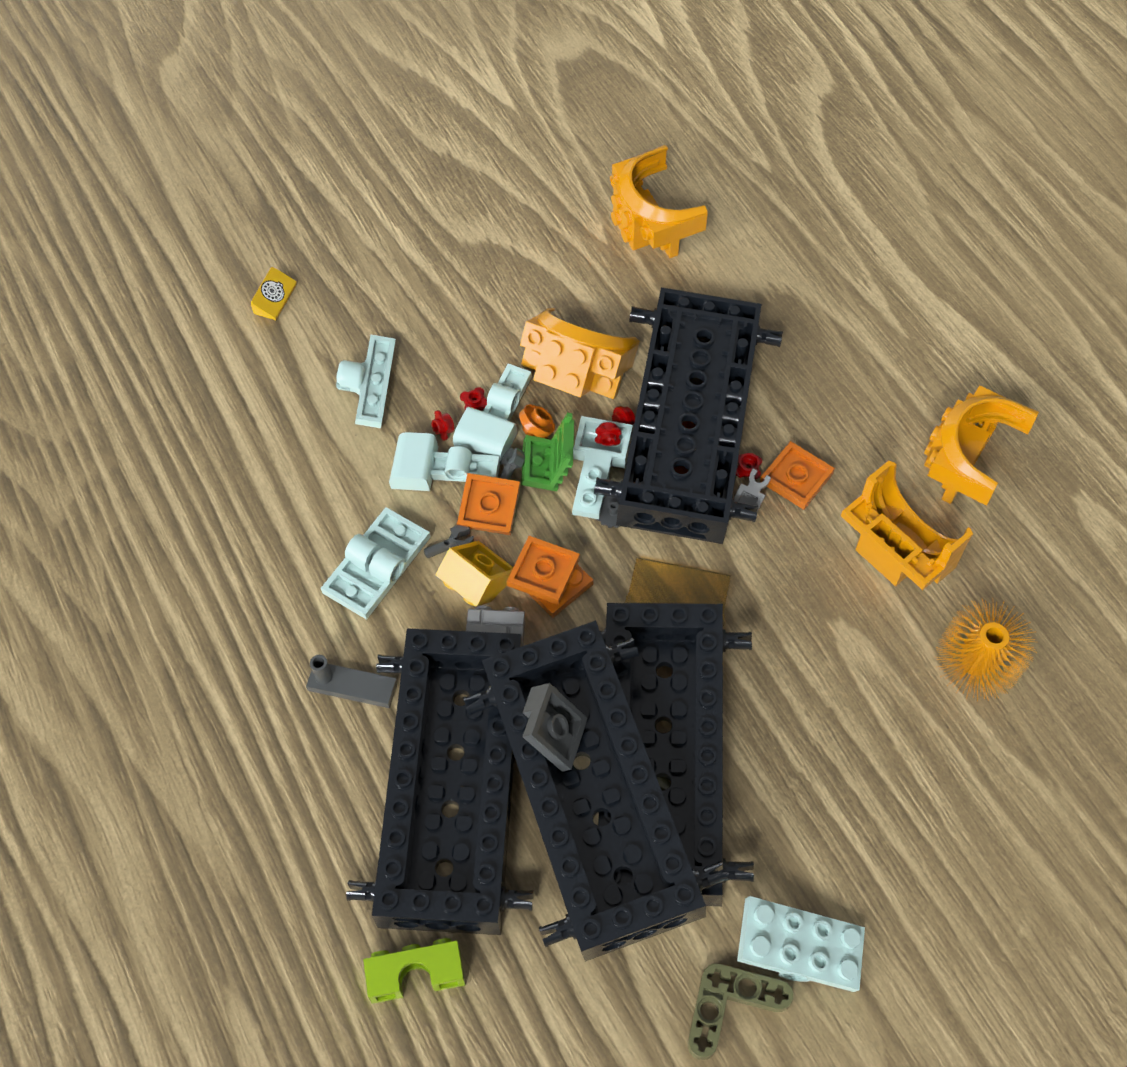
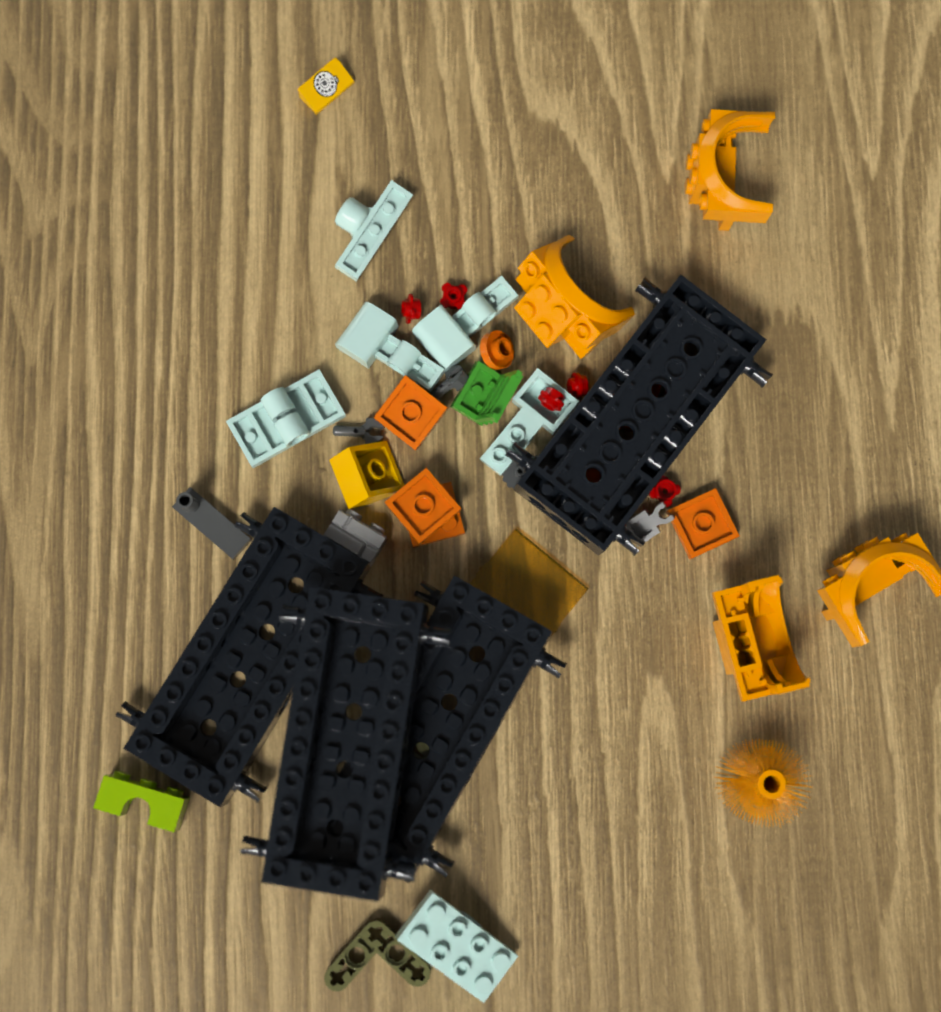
camera: 20 degrees right, 20 degrees up
(553, 725) = (337, 680): dark grey plate -> none

